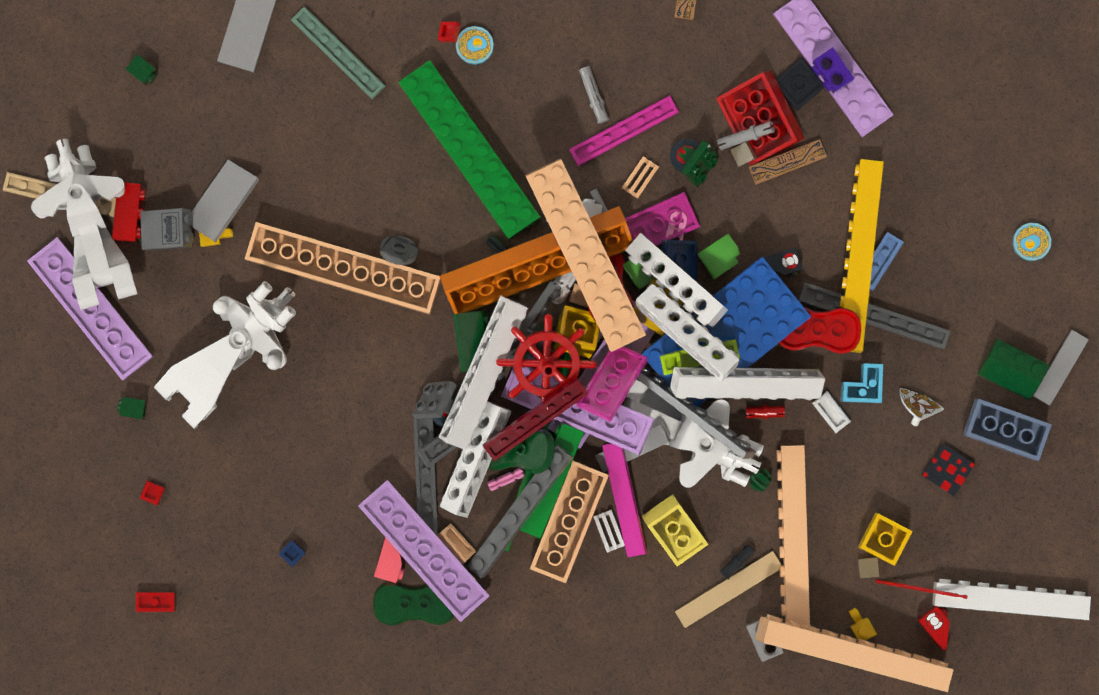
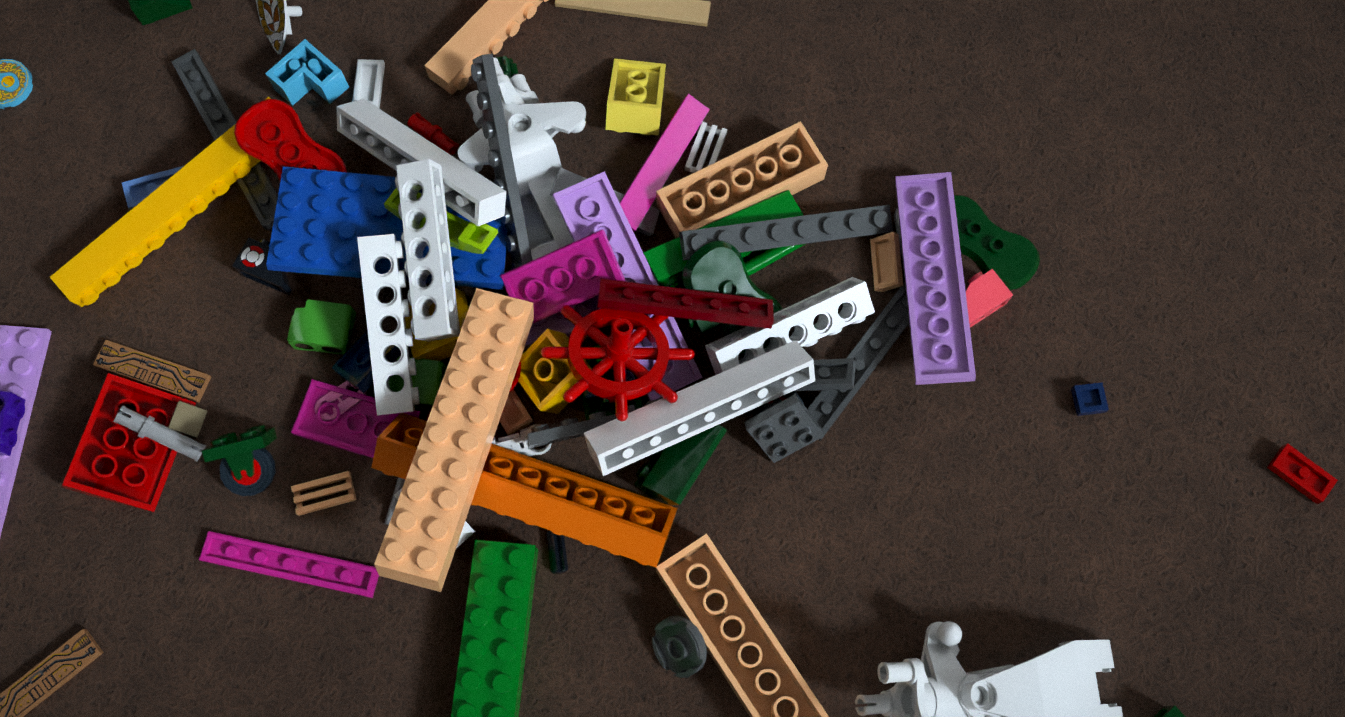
camera: 140 degrees left, 15 degrees down
(152, 493) = (1216, 606): red tile -> none
(505, 479) = (776, 288): bright pink axle -> none
(593, 94) = (283, 634): light grey pin -> none
(737, 562) = (600, 19): black pin -> none
(799, 84) = (49, 445): black tile -> none

